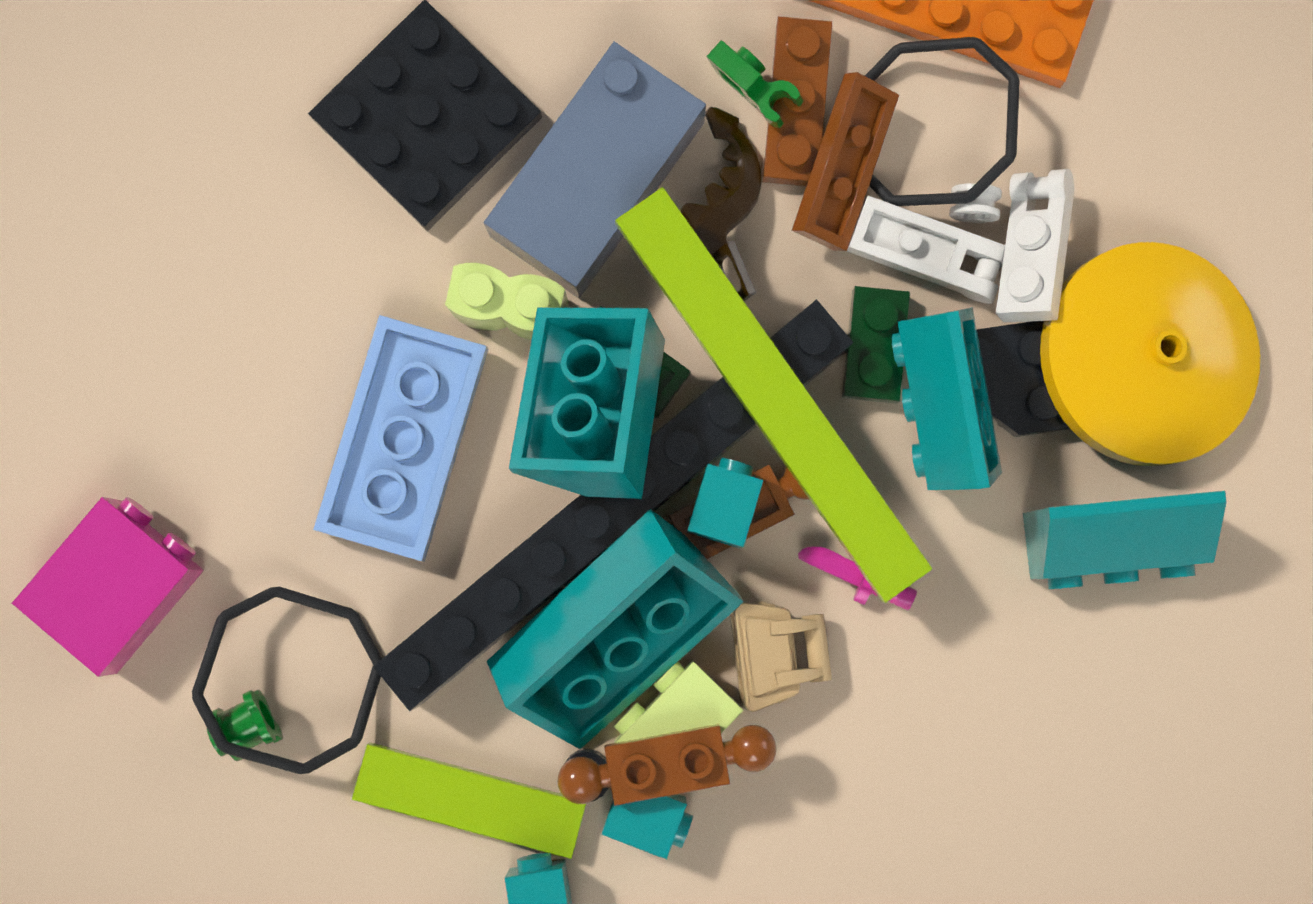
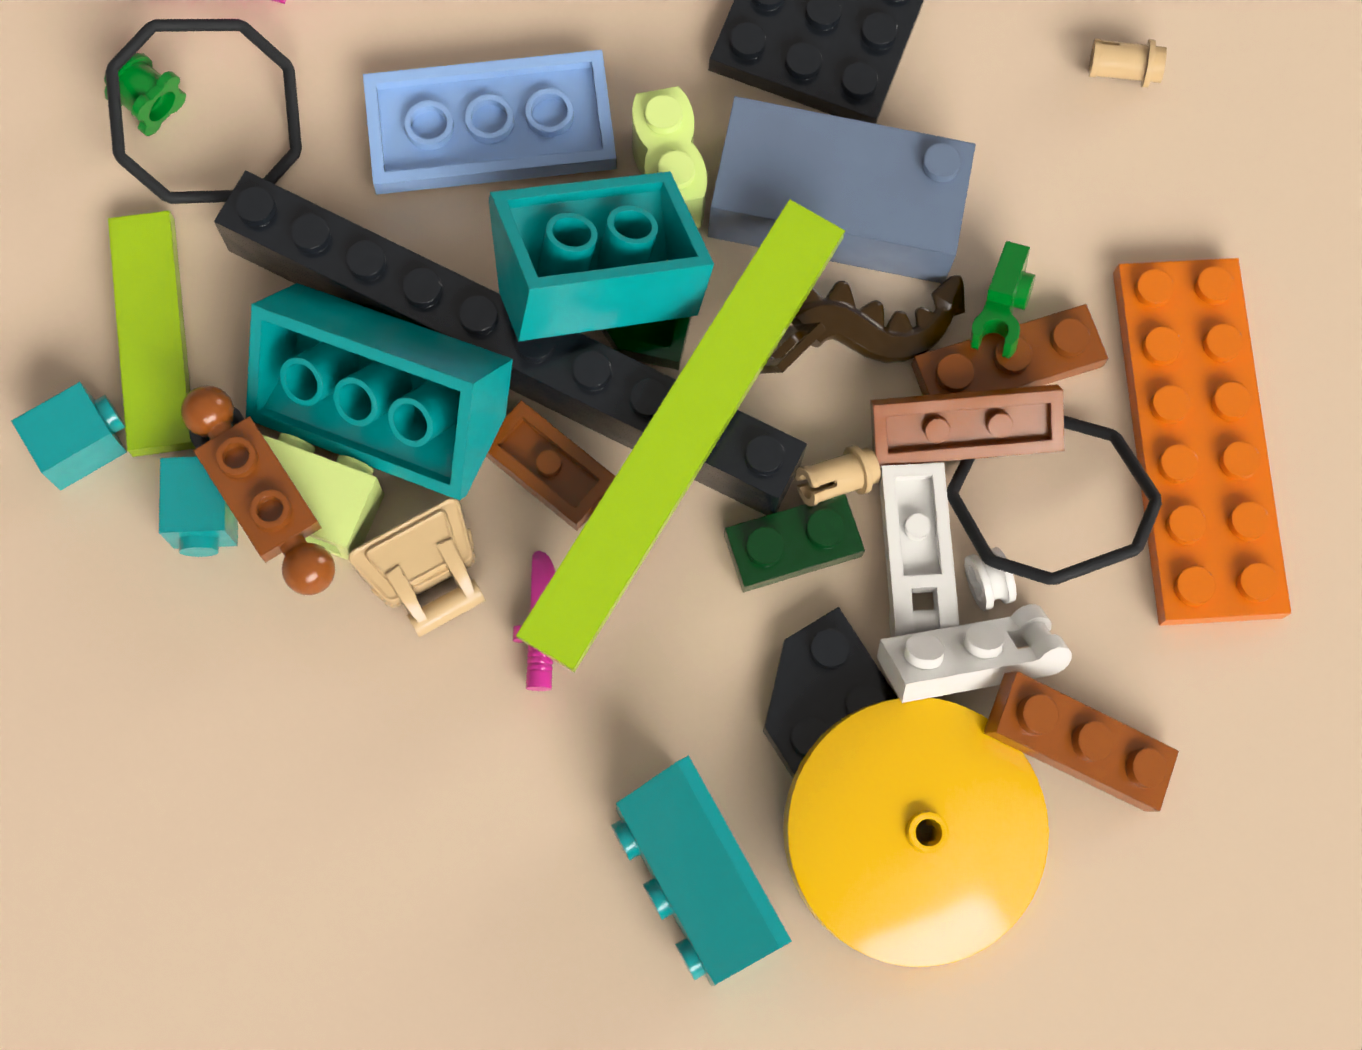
camera: 60 degrees right, 10 degrees down
(725, 503) = (553, 440): teal brick -> none
(841, 283) = (846, 473): none -> tan pin
(948, 401) = (768, 626): teal slope -> none
(1137, 195) = (1081, 741): none -> dark orange plate

